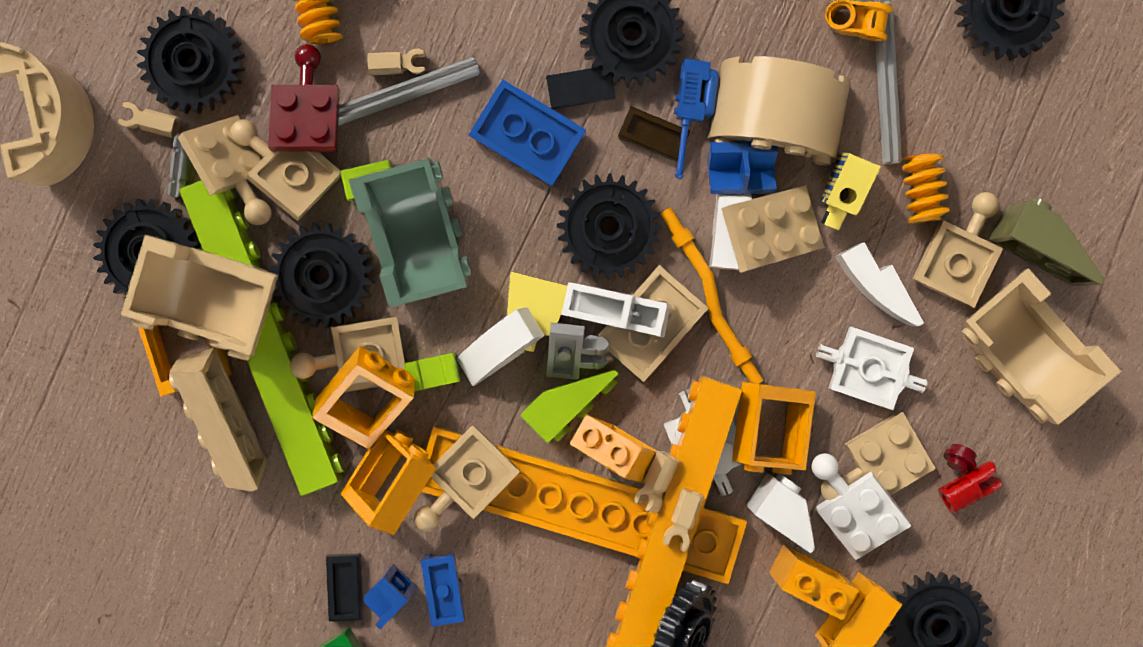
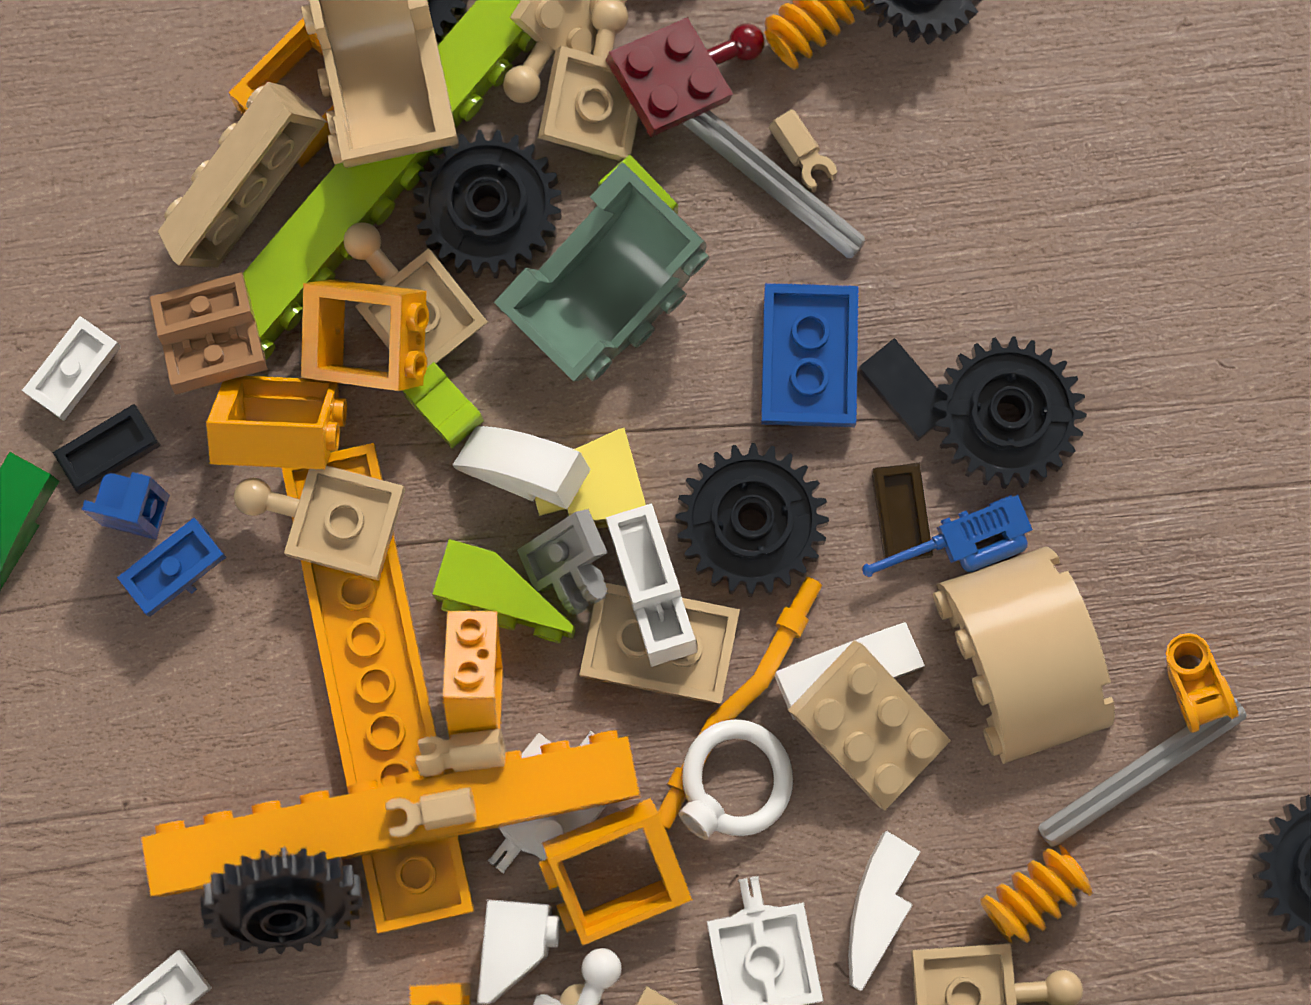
camera: 65 degrees right, 10 degrees down
(282, 583) = (71, 368): none -> white plate
(309, 491) = (208, 333): none -> medium nougat slope
(741, 168) = (922, 644): blue panel -> none
(767, 355) = (703, 813): none -> white piece
(857, 177) = (997, 785): light yellow torso -> none

